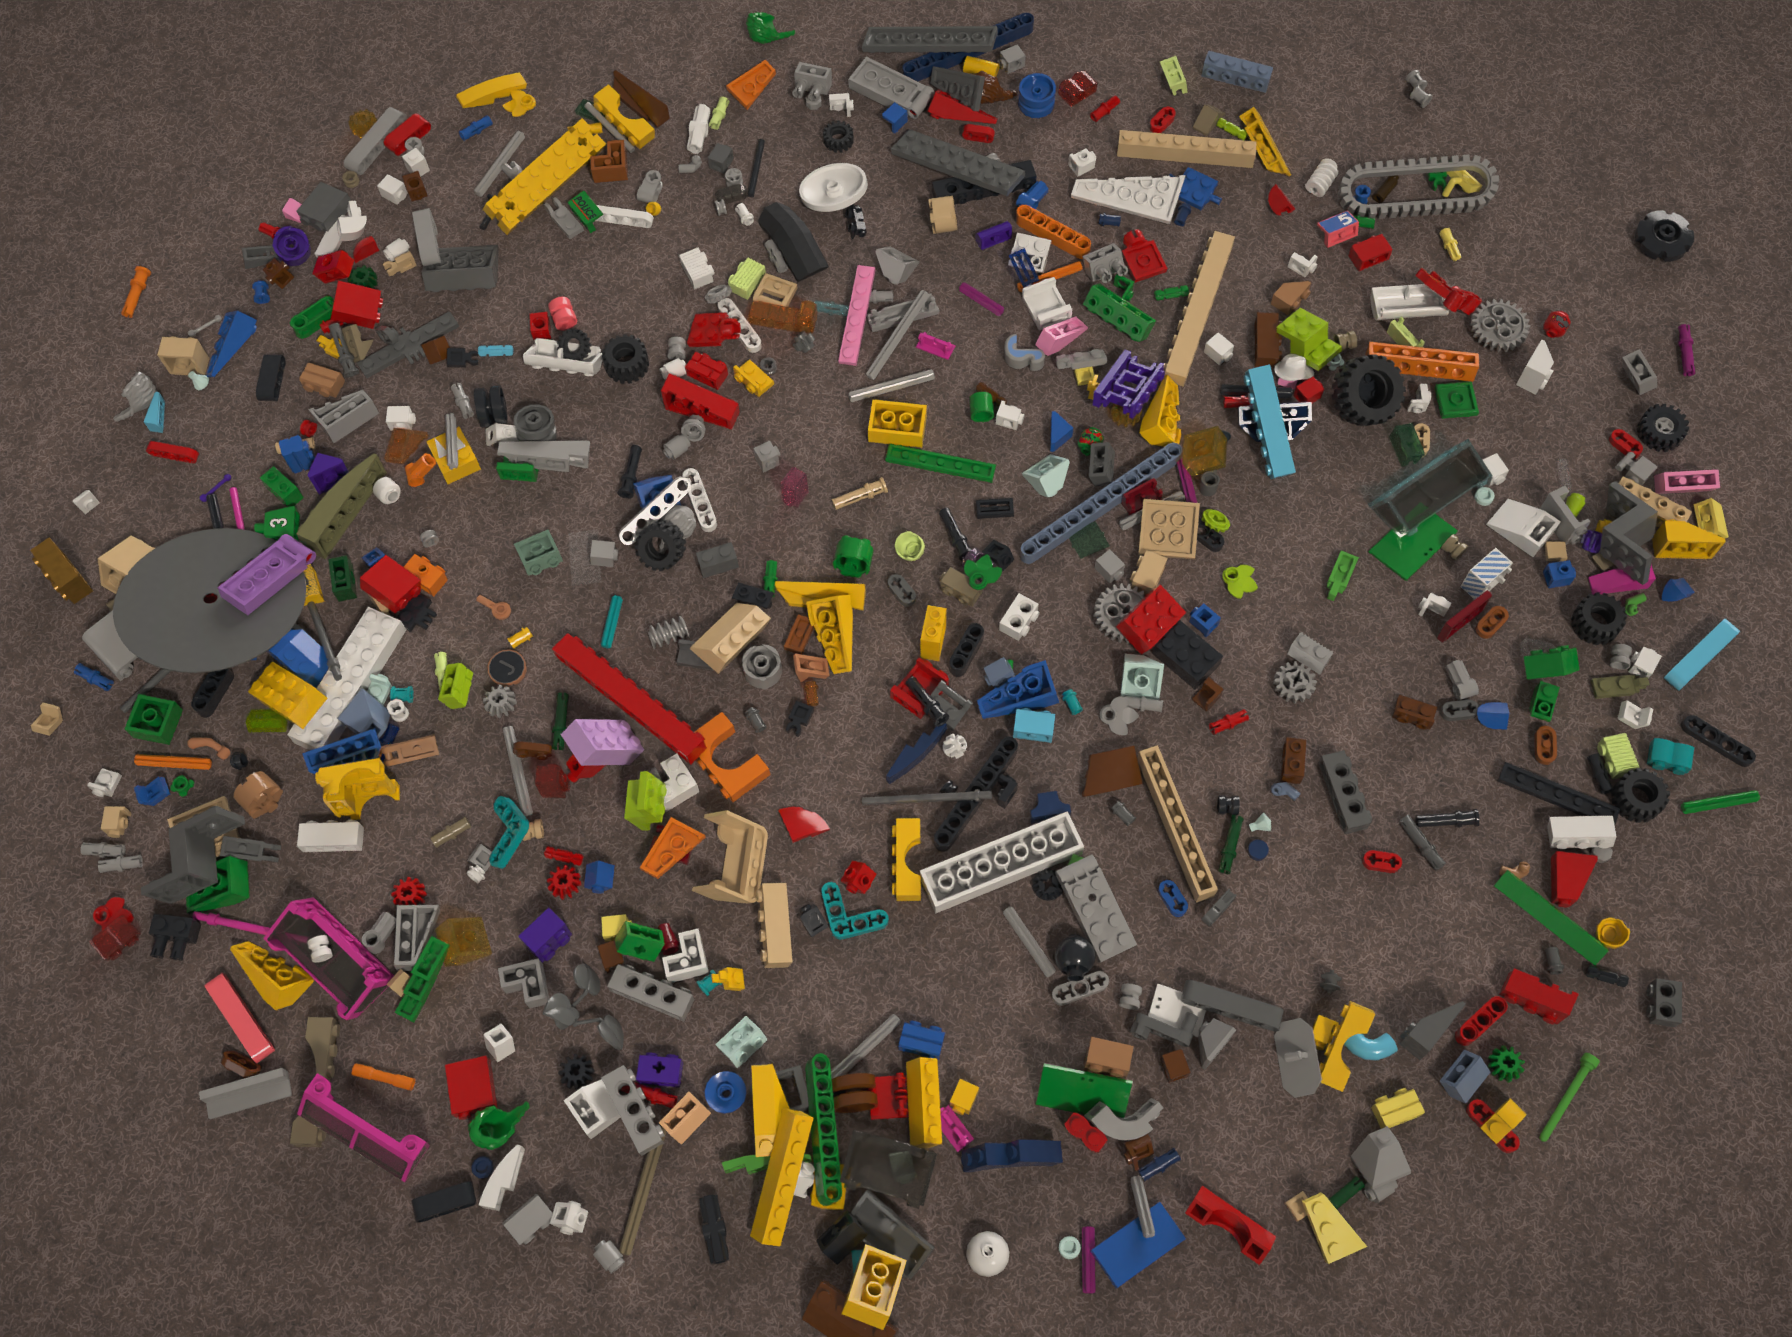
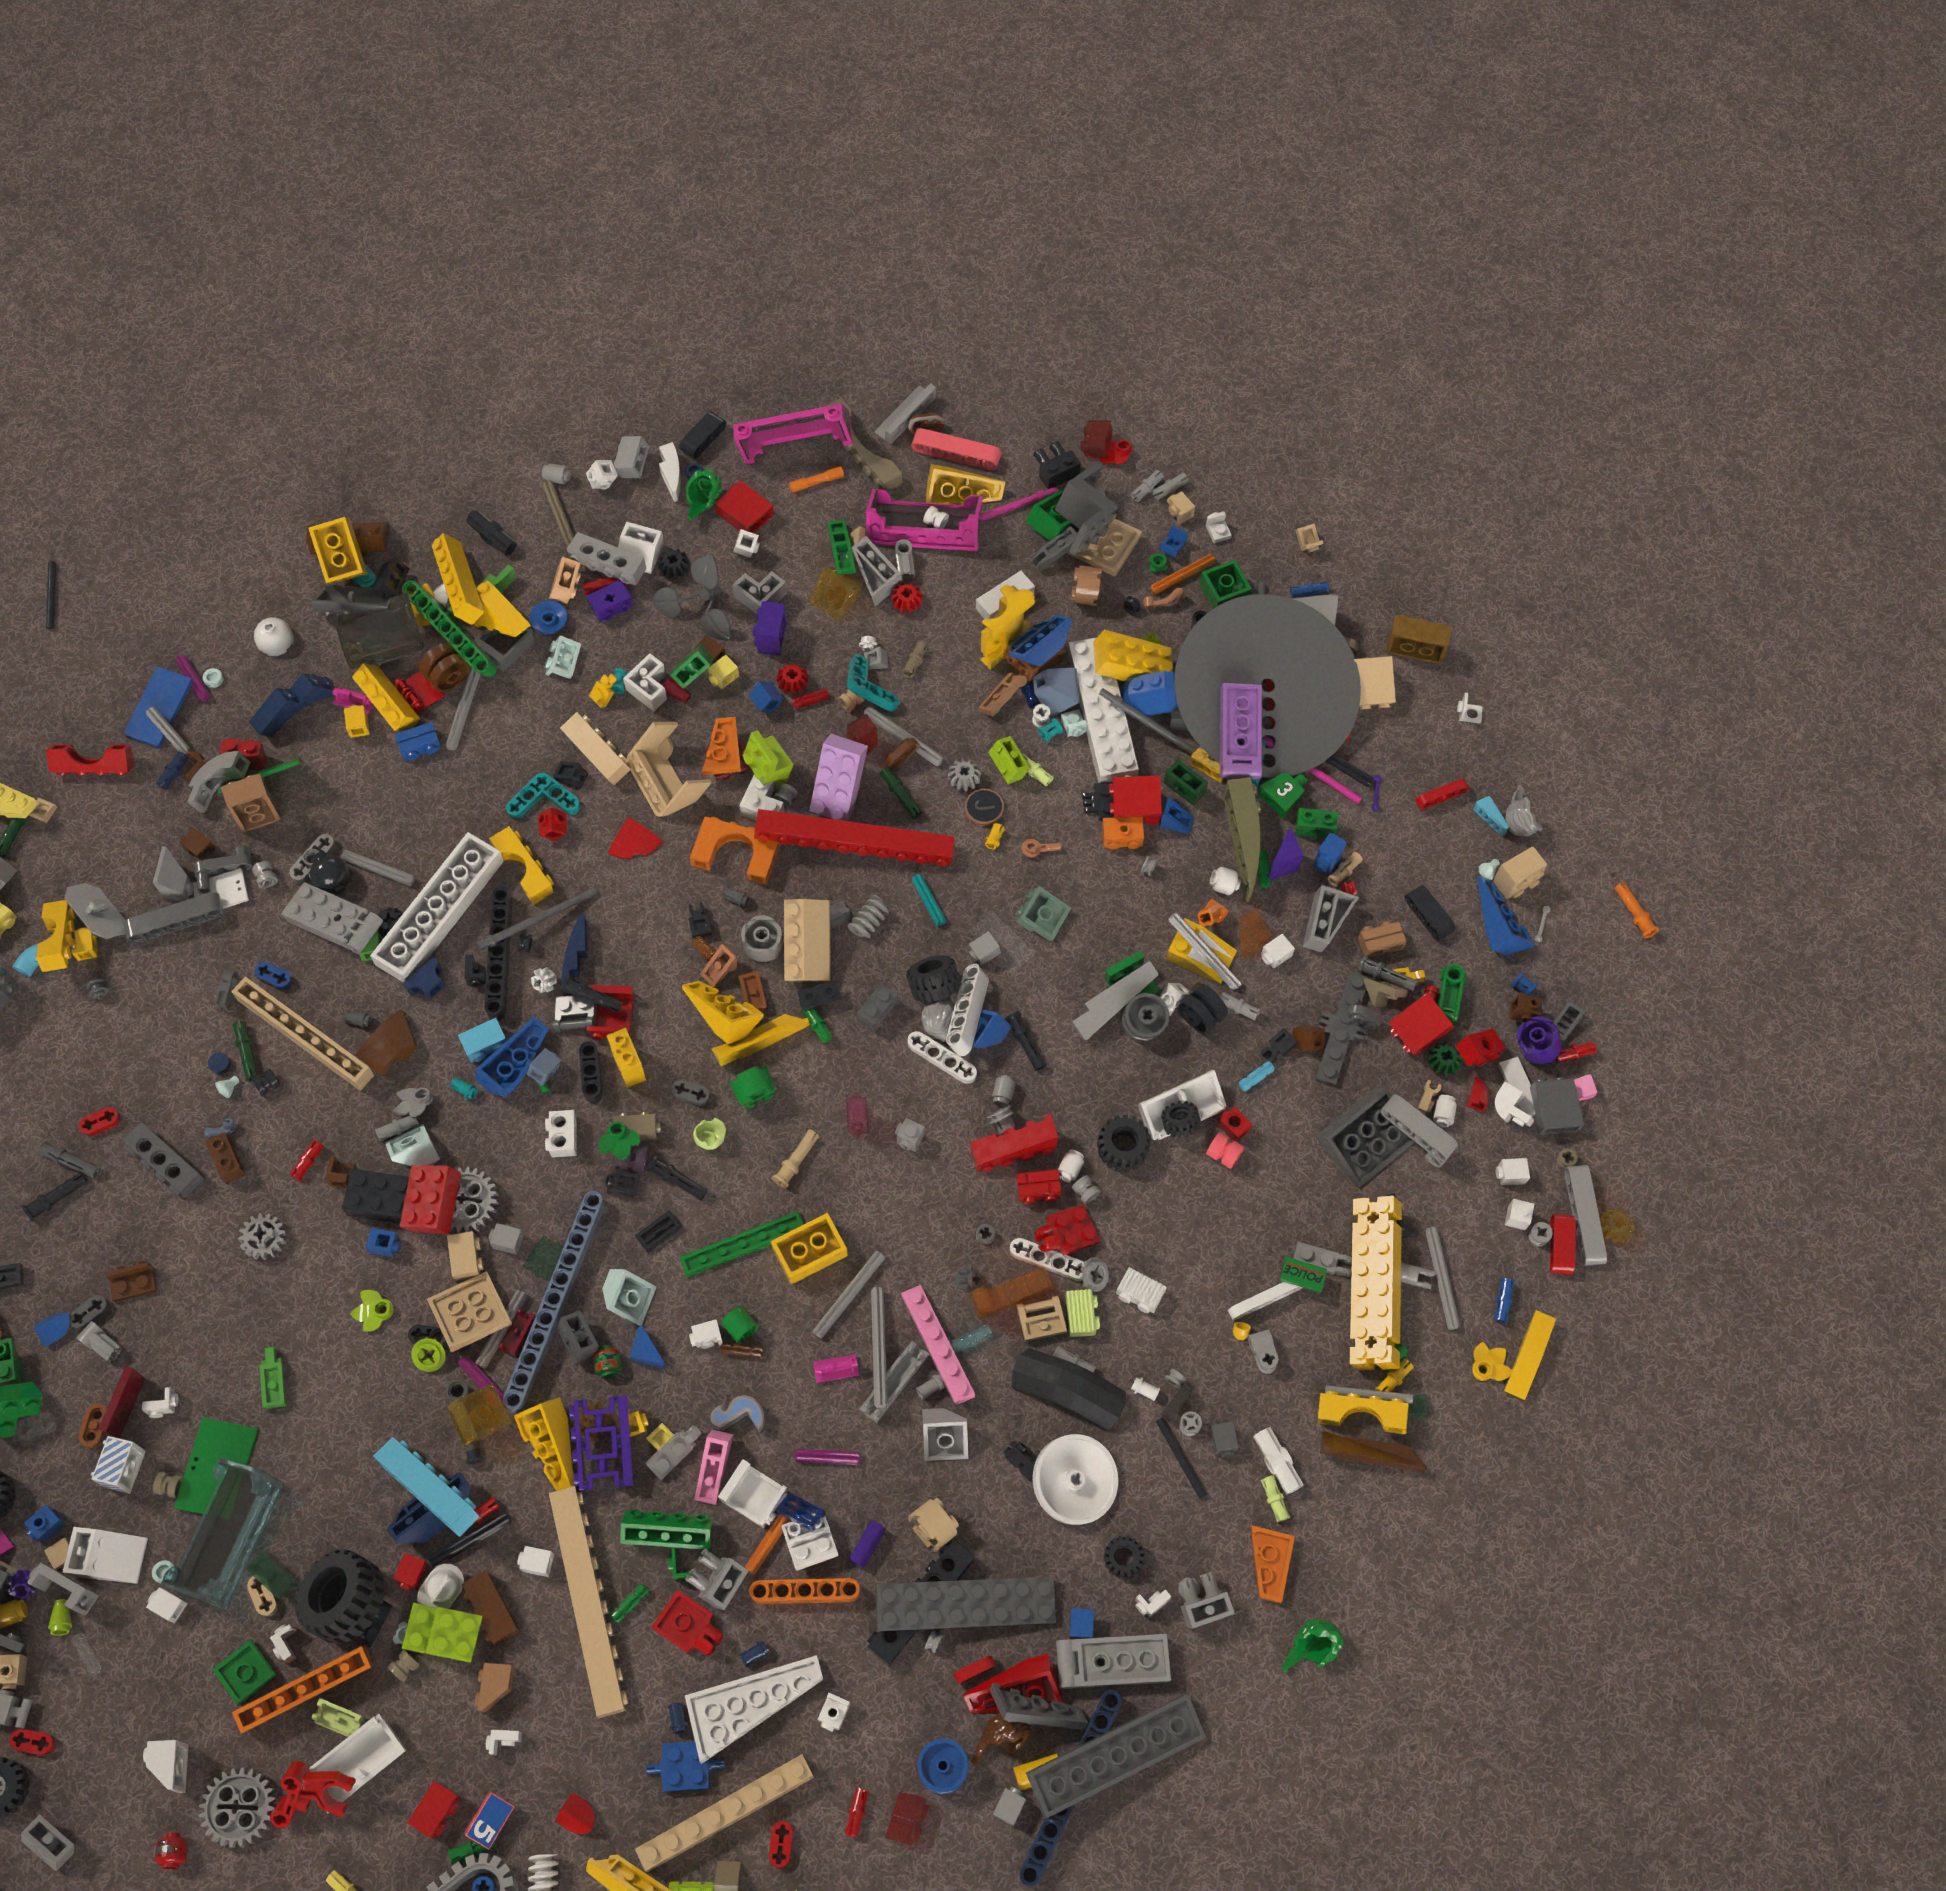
camera: 140 degrees right, 0 degrees up
(415, 186) = (1502, 1185): reddish brown brick -> none
(610, 166) = (1321, 1349): dark orange brick -> none
(677, 1009) = (649, 642): light grey brick -> none
(692, 166) = (1247, 1411): light grey arm -> none
(753, 378) = (989, 1210): yellow bracket -> none
(1033, 195) = (857, 1618): blue piece -> none
(1310, 653) = (261, 1273): light grey brick -> none

